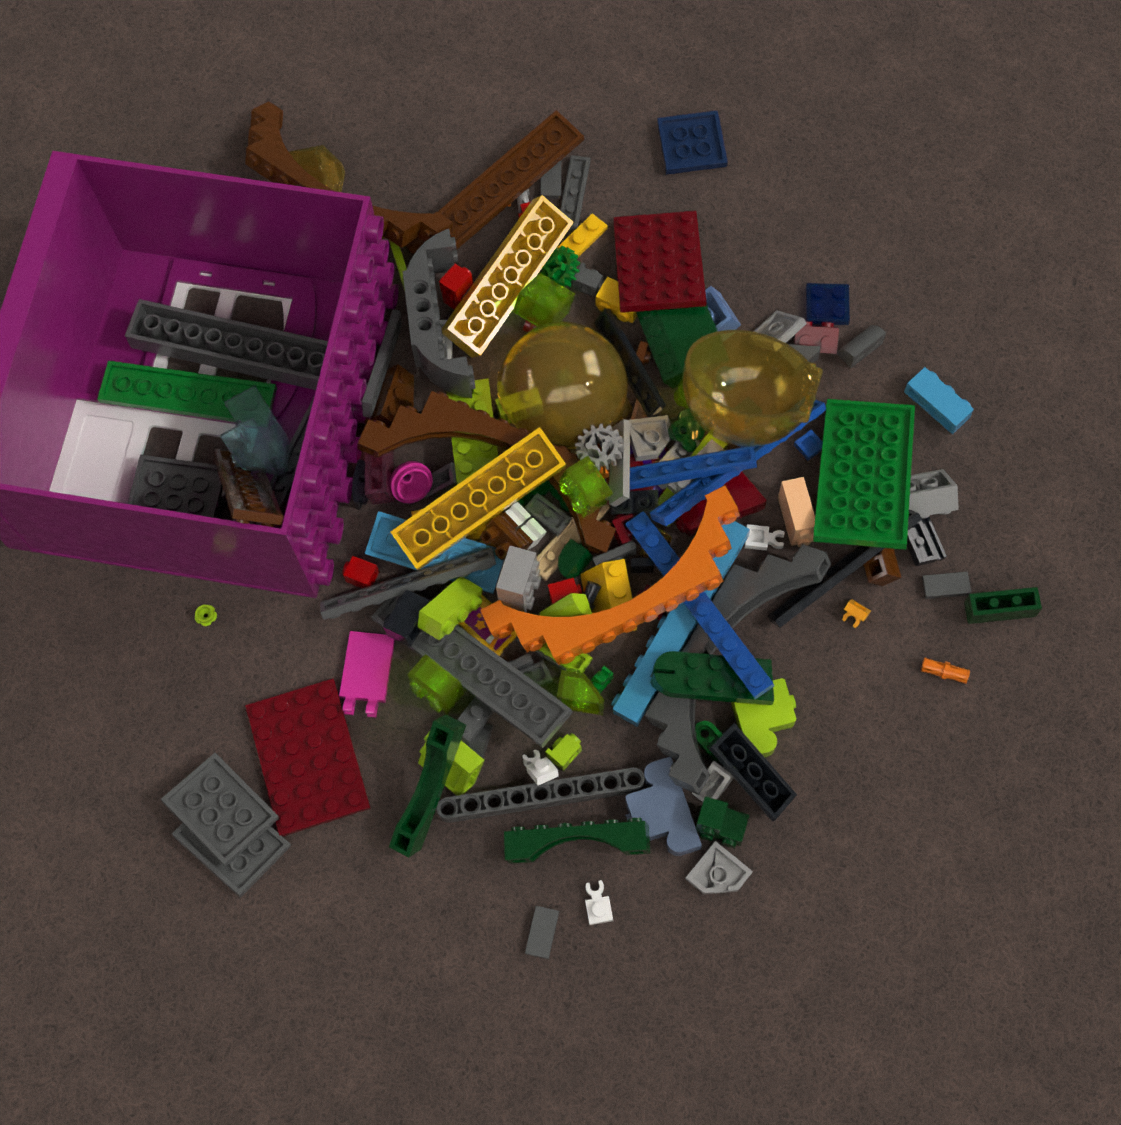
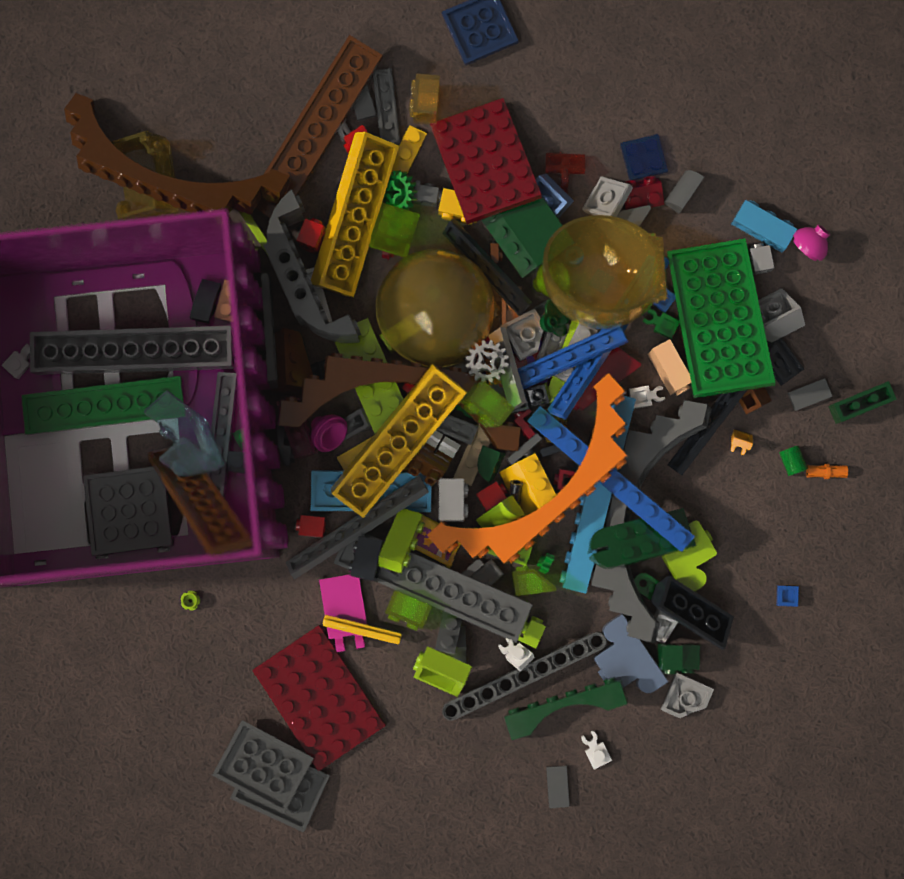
camera: 20 degrees left, 15 degrees up
(115, 333) = (18, 362): none -> white plate
(323, 323) = (205, 301): none -> black slope
(378, 693) = (362, 629): none -> yellow axle
(440, 754) = (433, 705): dark green arch -> none
(615, 189) = (426, 98): none -> clear yellow brick
(741, 289) = (566, 165): none -> clear red plate
(801, 468) = (664, 325): none -> green plate
(865, 792) = (787, 596): none -> blue plate
(909, 647) = (793, 460): none -> green piece
(926, 432) = (761, 259): none -> light grey brick
(988, 426) = (812, 241): none -> dark pink piece

